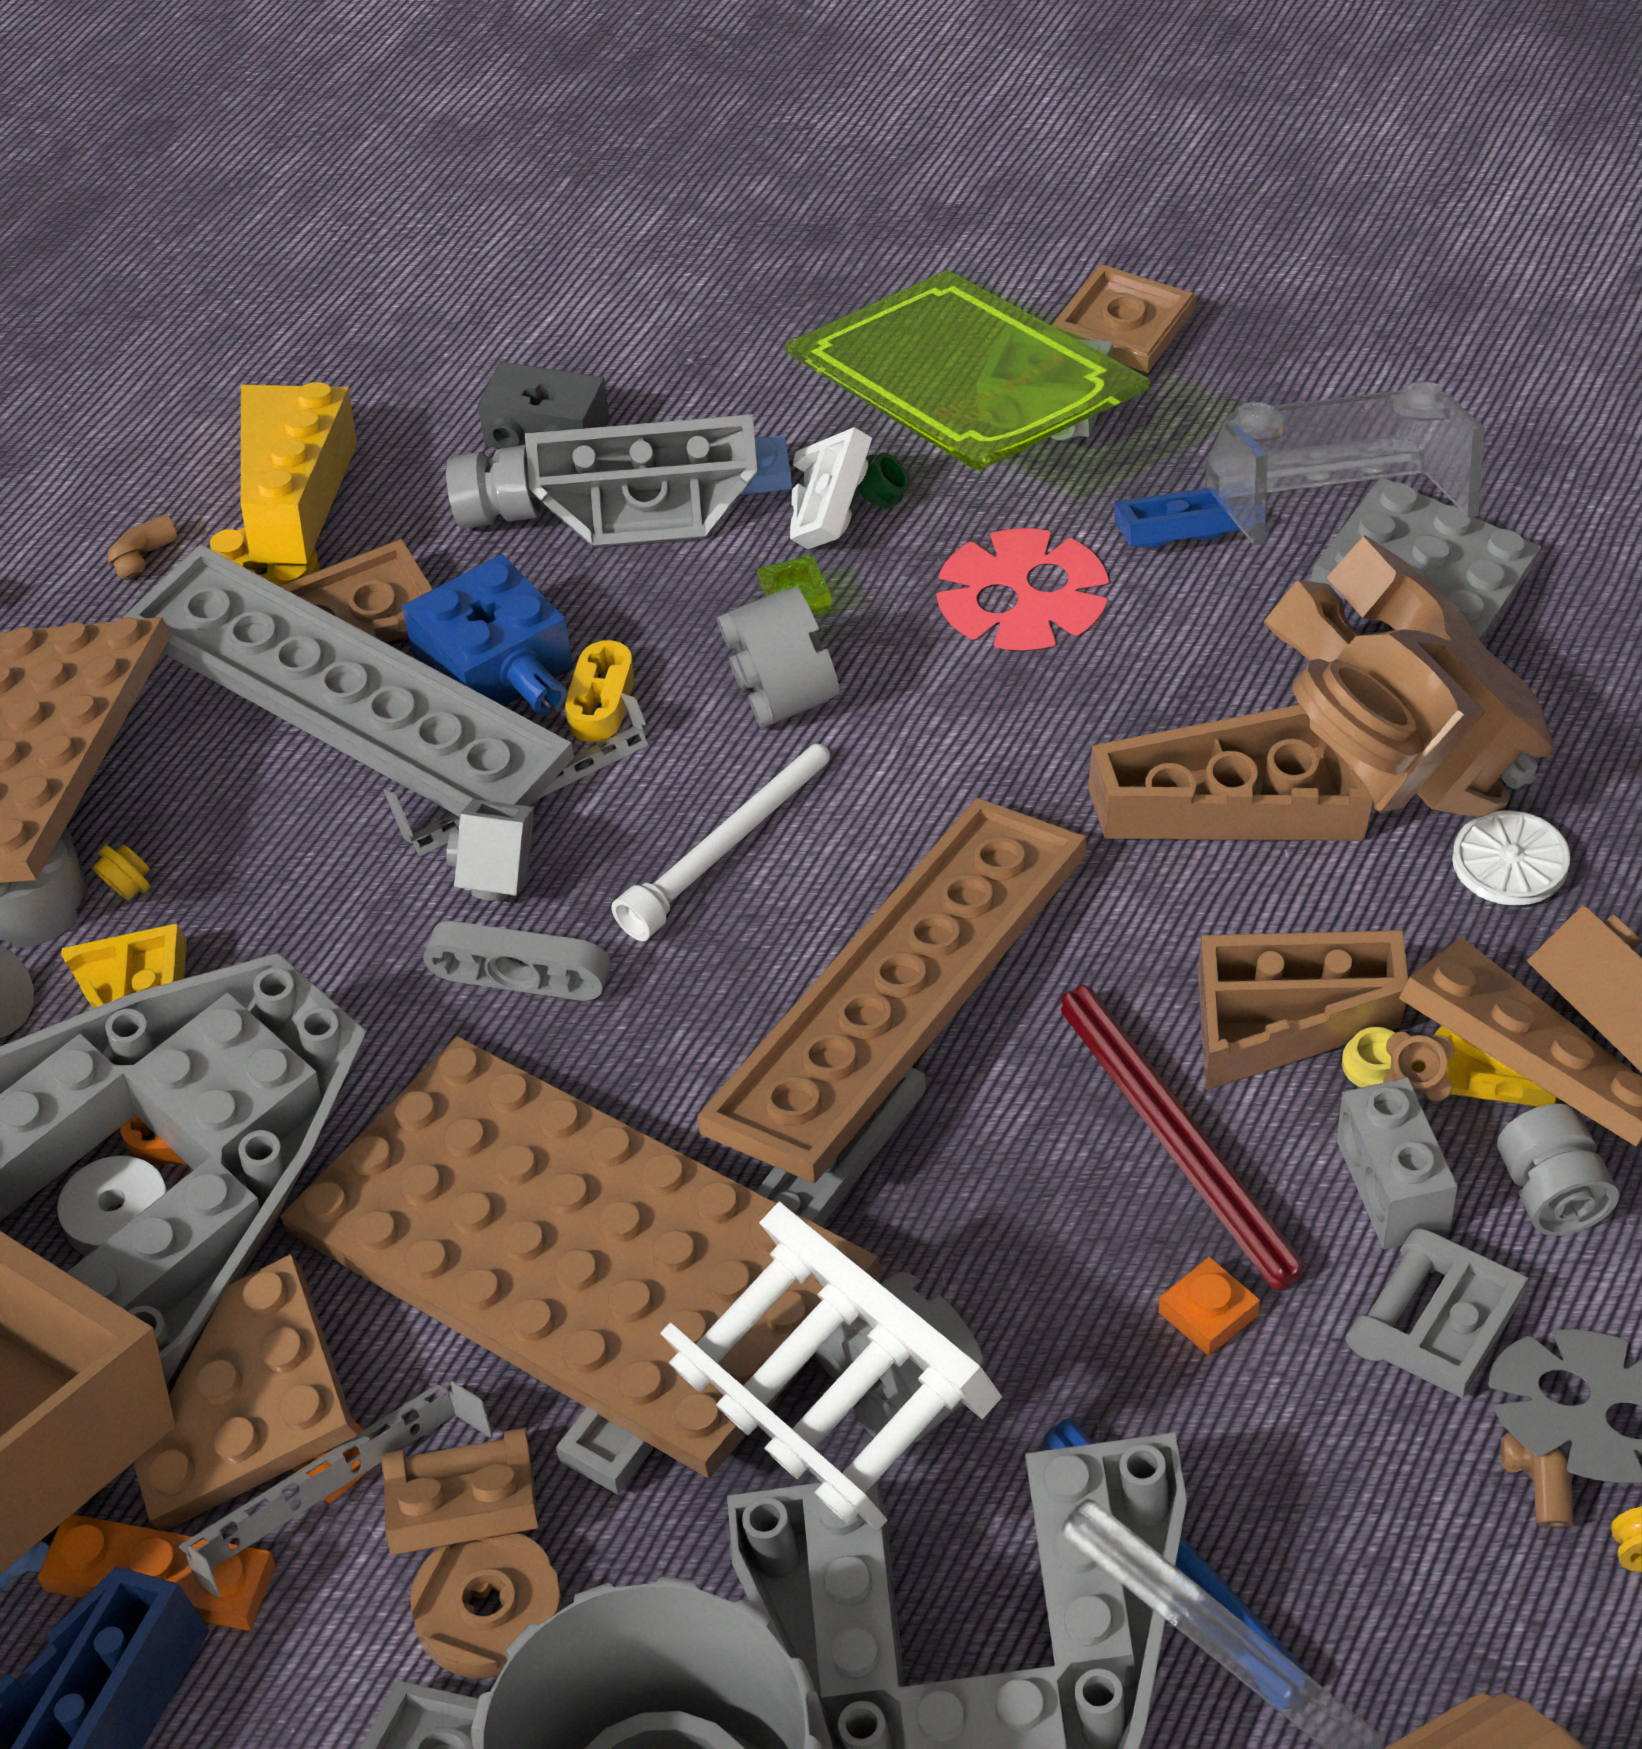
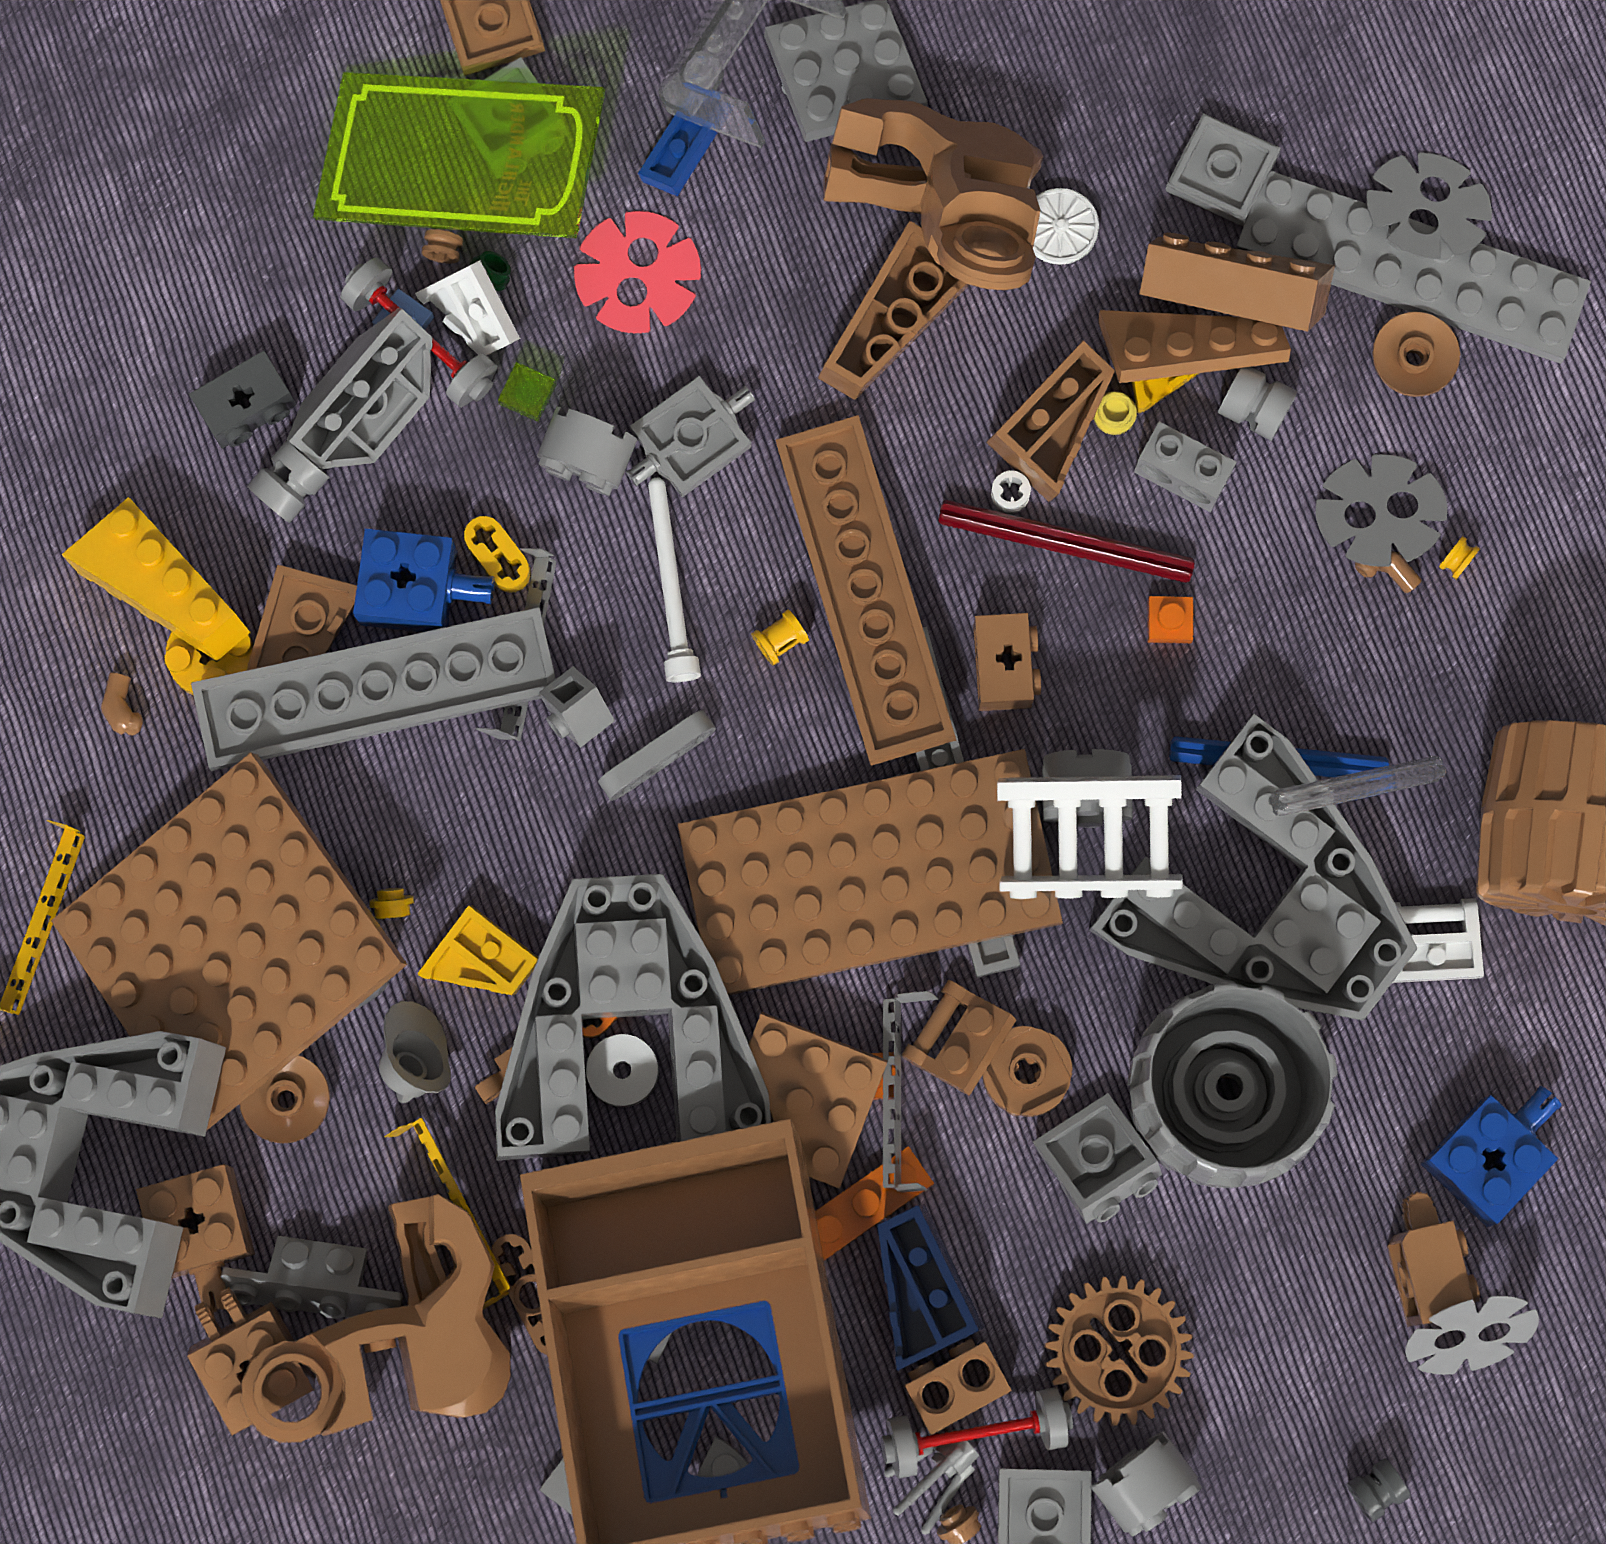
camera: 50 degrees left, 30 degrees up
(754, 532) = (470, 379): none -> light grey axle
(766, 963) = (780, 637): none -> yellow bush
(870, 423) = (442, 246): none -> medium nougat bush
(899, 736) = (690, 436): none -> light grey plate
(967, 1178) = (999, 636): none -> medium nougat brick
(1171, 1022) = (997, 492): none -> white bush
(1432, 1051) = (1161, 409): medium nougat plate -> none
(1456, 1324) = (1285, 522): light grey plate -> none

